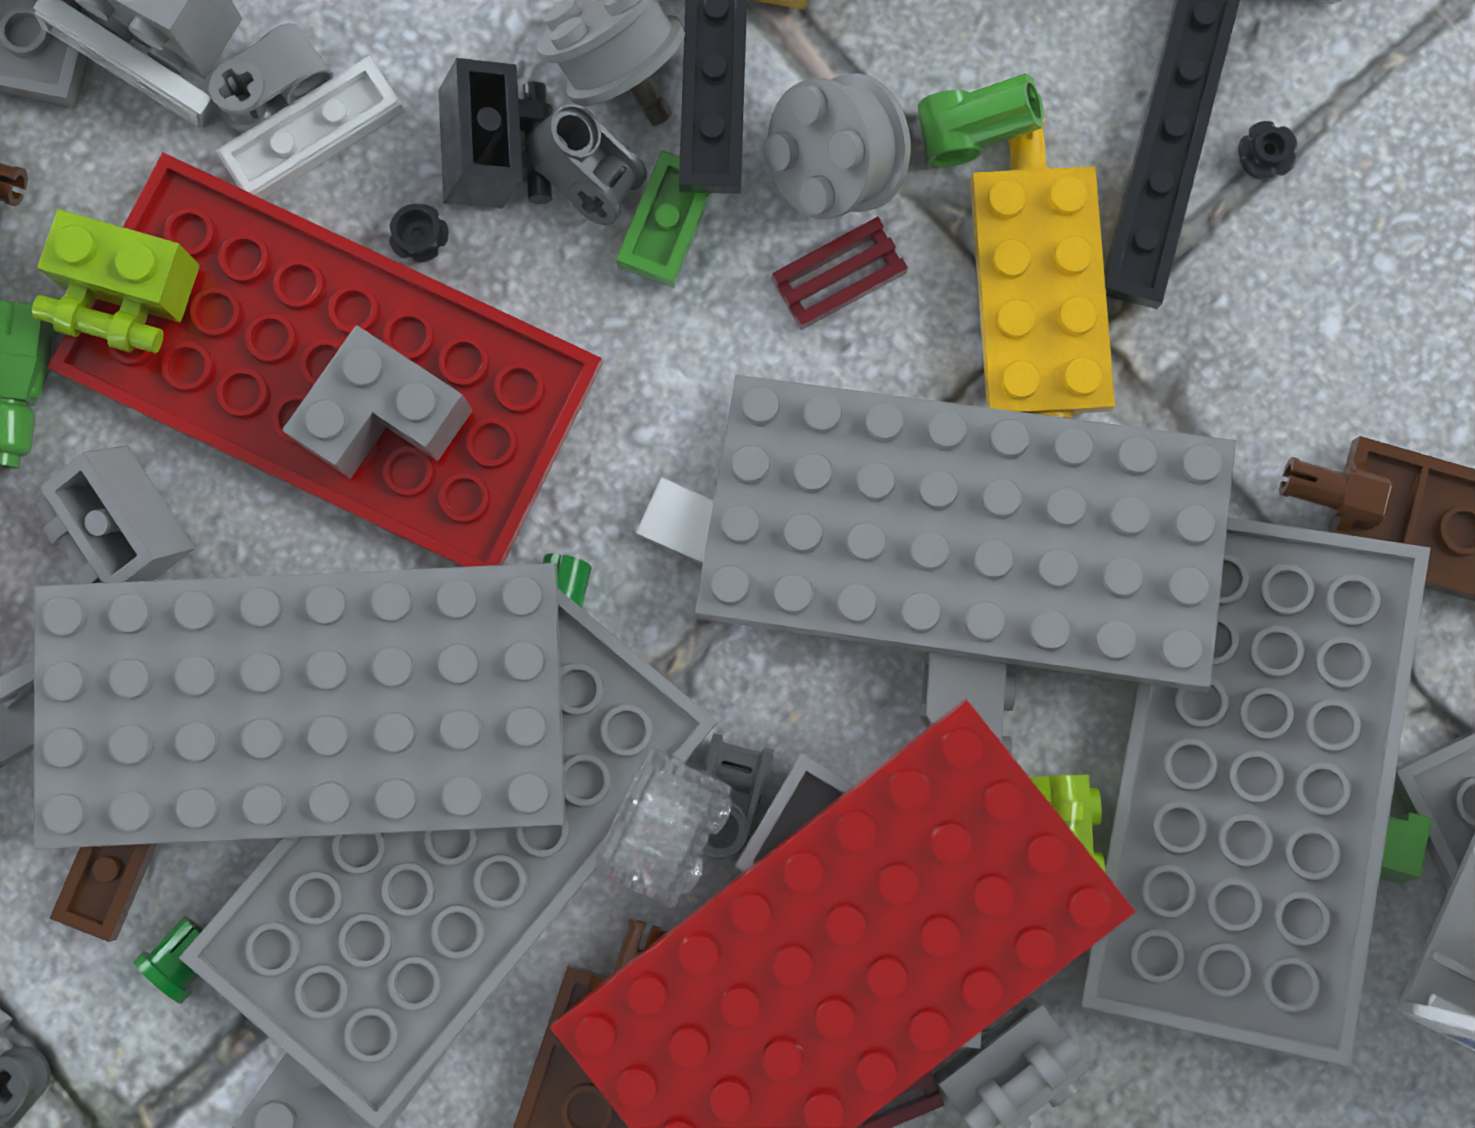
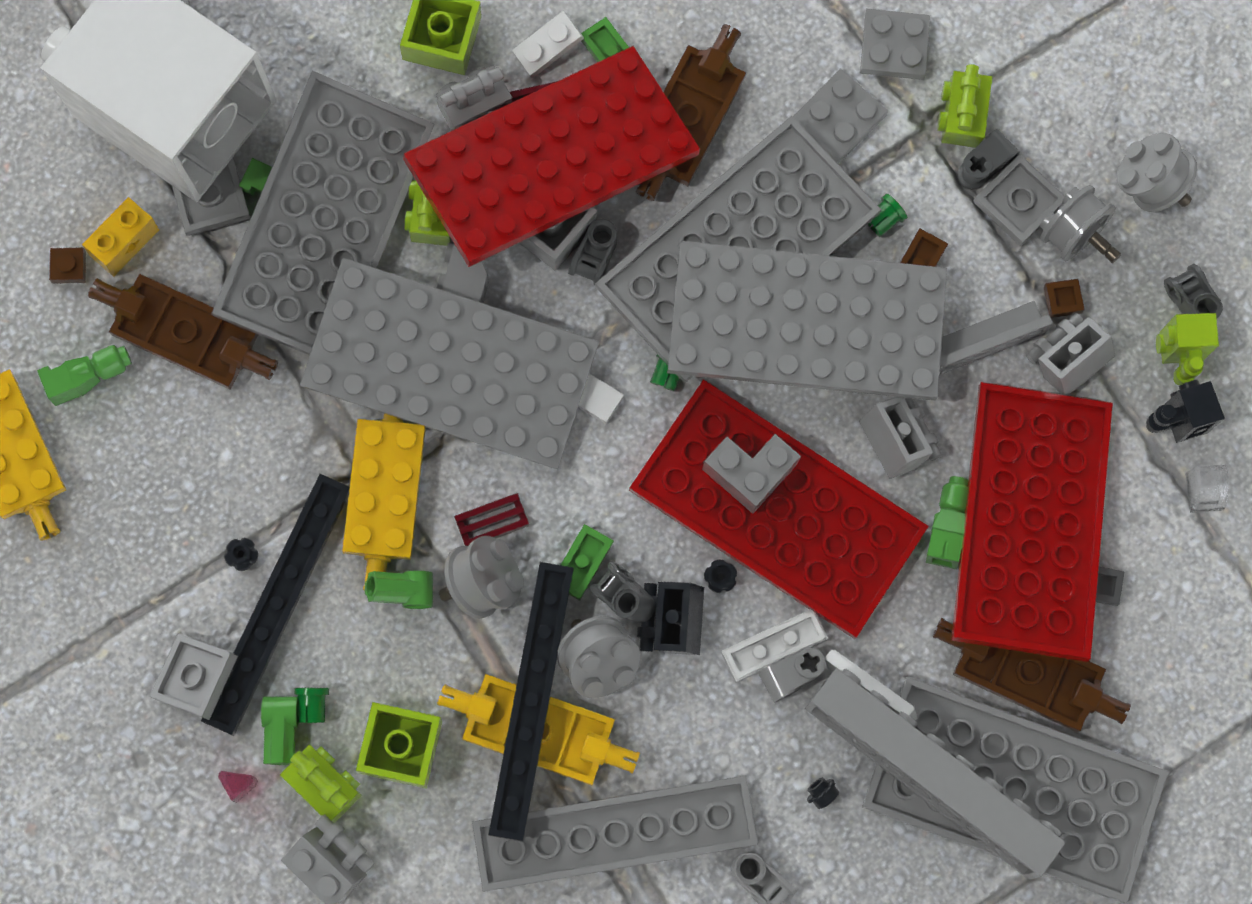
camera: 175 degrees left, 5 degrees down
(116, 267) = (882, 564): lime brick -> none
(663, 827) = (630, 232): clear brick -> none

